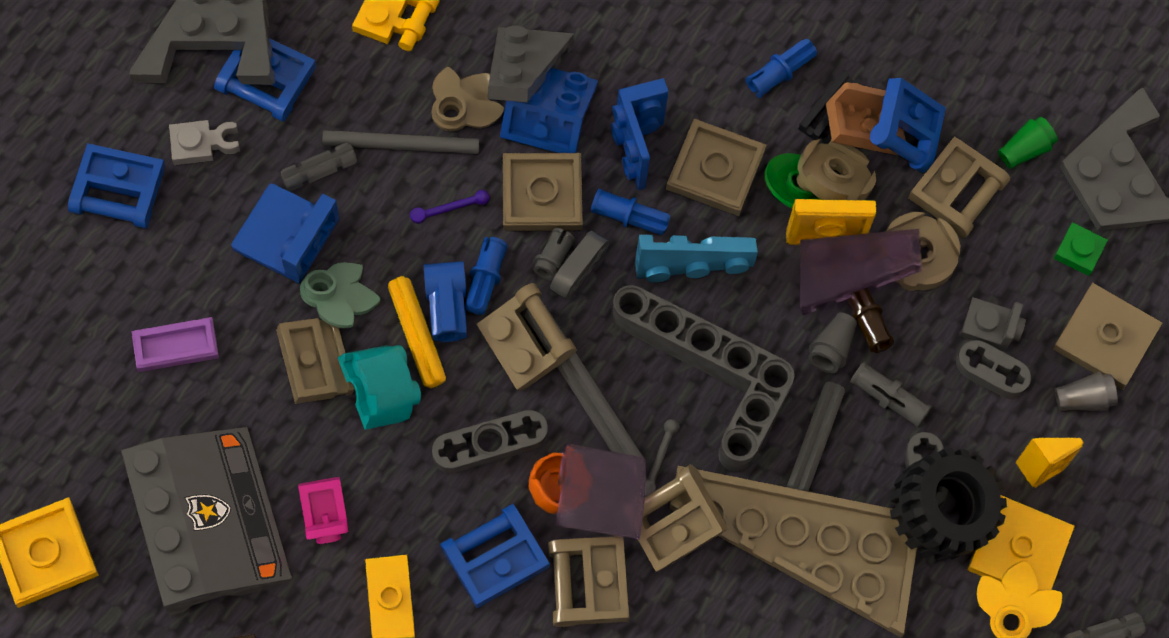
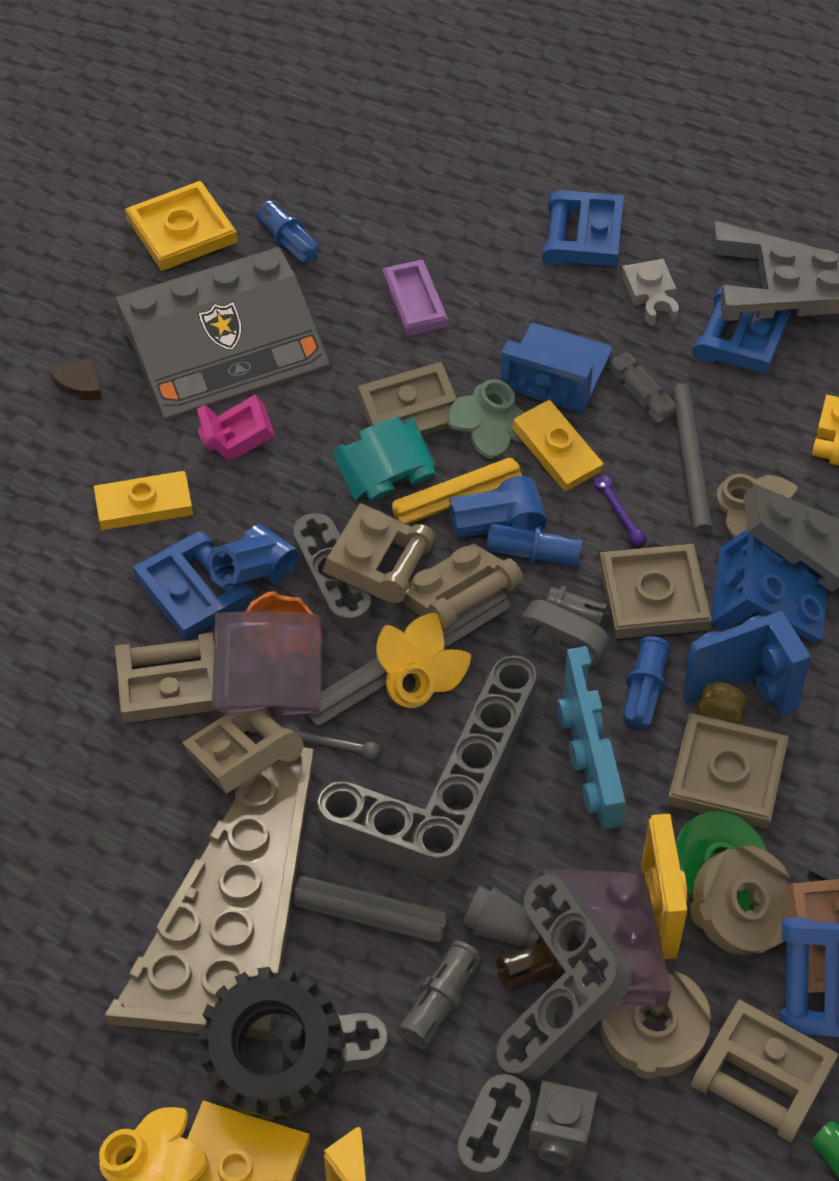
camera: 90 degrees right, 15 degrees down
(74, 449) = (288, 232): none -> blue axle
(377, 244) = (557, 445): none -> yellow plate
(481, 409) = (365, 546): none -> dark tan plate
(482, 500) = (255, 556): none -> blue piece
(601, 376) = (423, 655): none -> yellow plate
(660, 160) = (722, 702): none -> clear yellow bush
(910, 288) = (578, 983): none -> dark grey beam

